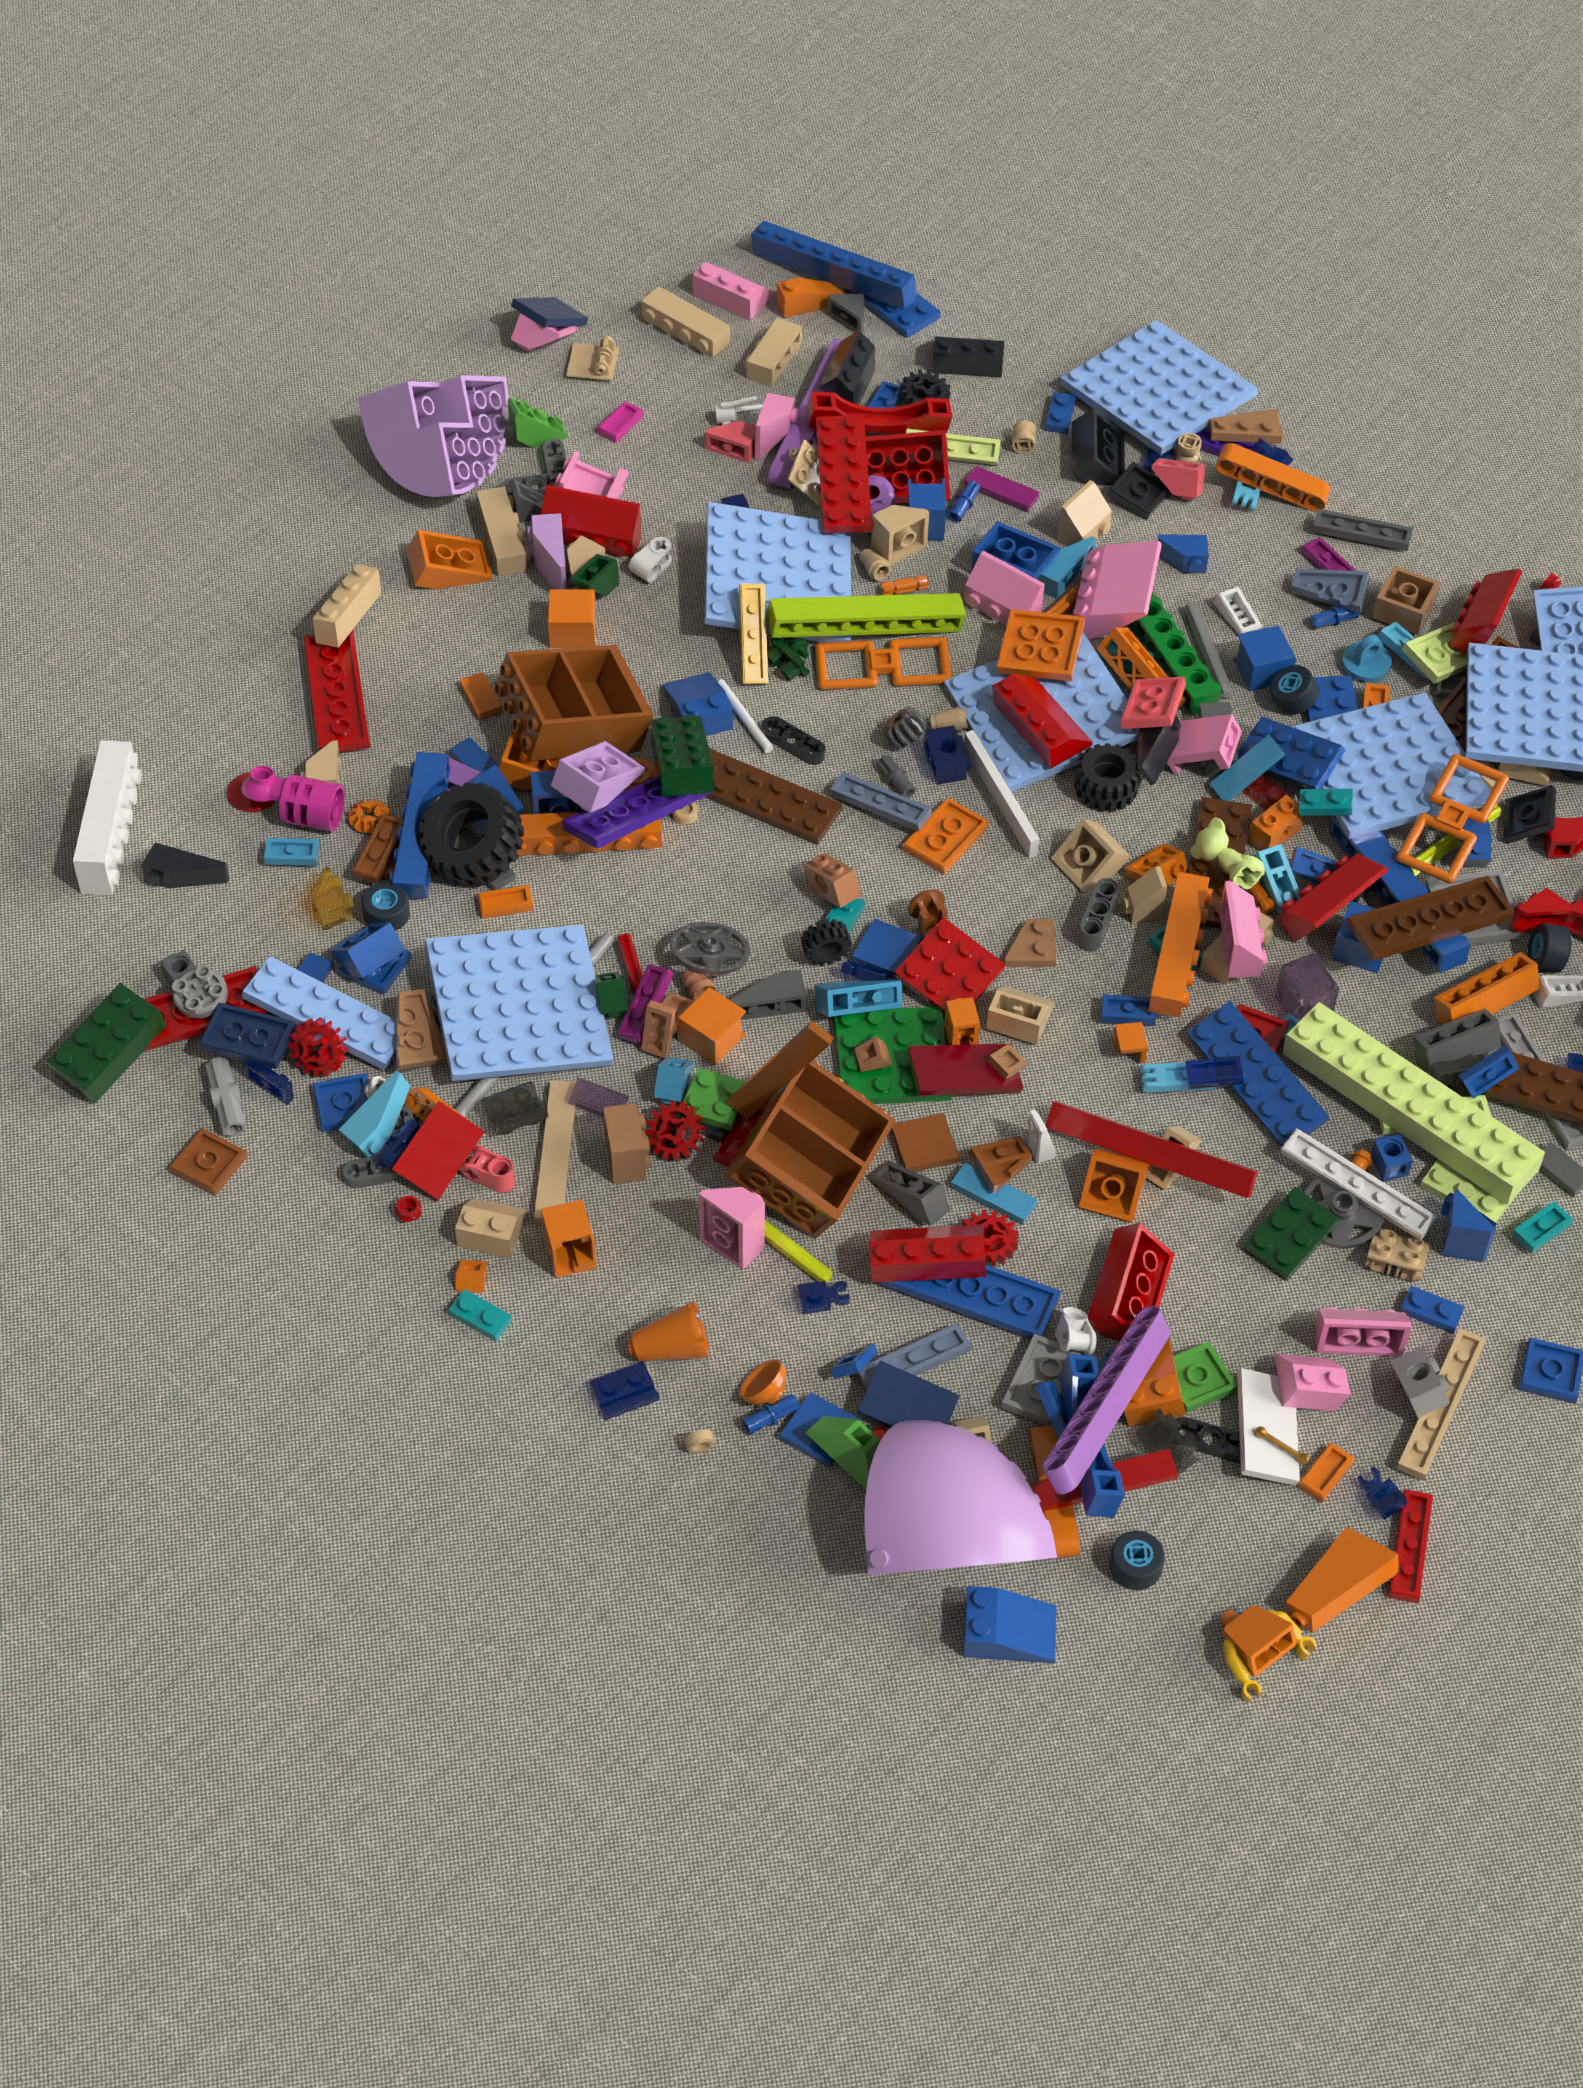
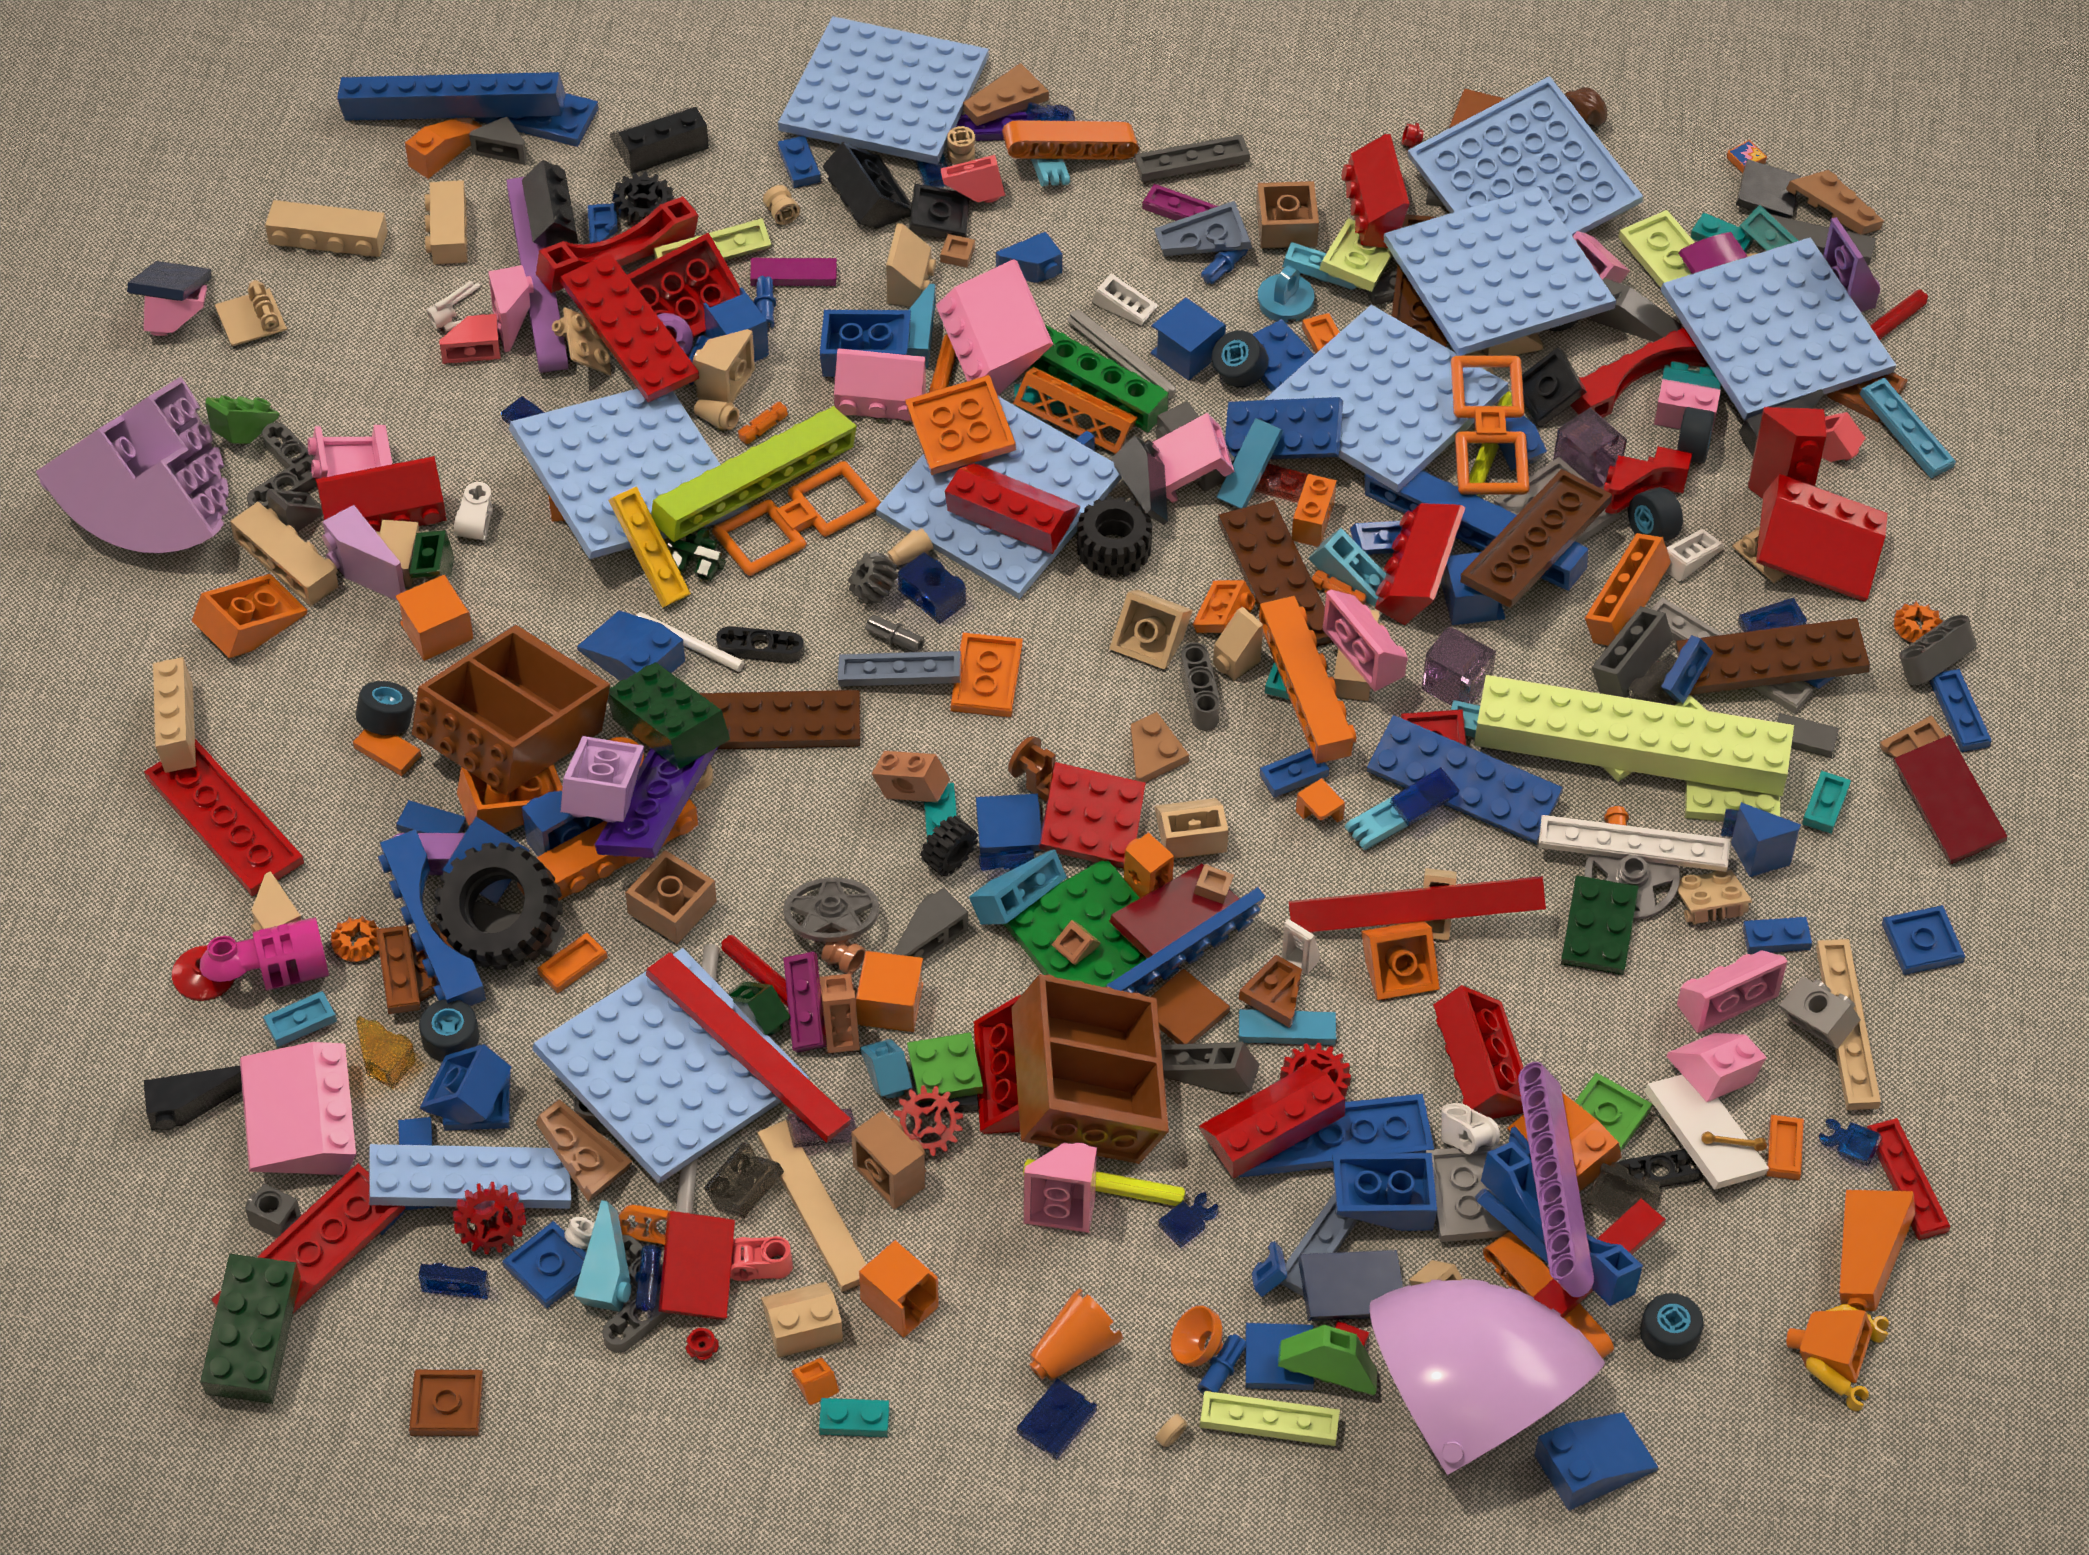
camera: 30 degrees left, 0 degrees up
(106, 818) = (70, 1078): white brick -> none
(199, 992) = (317, 1222): light grey tile -> none
(225, 1097) = (418, 1322): light grey piece -> none
(242, 911) = (298, 1110): none -> bright pink slope
(247, 1035) = (404, 1243): dark blue tile -> none
(487, 662) = (384, 708): none -> black wheel
(579, 1015) = (748, 1047): none -> red tile
(601, 886) = (671, 896): none -> medium nougat brick
(620, 422) = (328, 373): dark pink tile -> none
(729, 291) = (351, 173): bright pink slope -> none
(779, 1069) = (1024, 1002): dark orange tile -> none
(779, 1470) = (1269, 1418): none -> yellowish green plate
(951, 1096) = (1191, 945): none -> blue plate
(979, 1346) = (1386, 1189): none -> blue slope
(1001, 794) = (1019, 604): white tile -> none
(1135, 524) = (957, 250): none -> medium nougat tile
(1153, 702) = (1118, 436): coral tile -> none
(1213, 844) = (1272, 559): yellowish green animal -> none
(1326, 802) = (1356, 463): teal plate -> none
(1392, 1166) = (1653, 800): blue brick -> none
(1528, 869) = (1589, 446): none -> piece

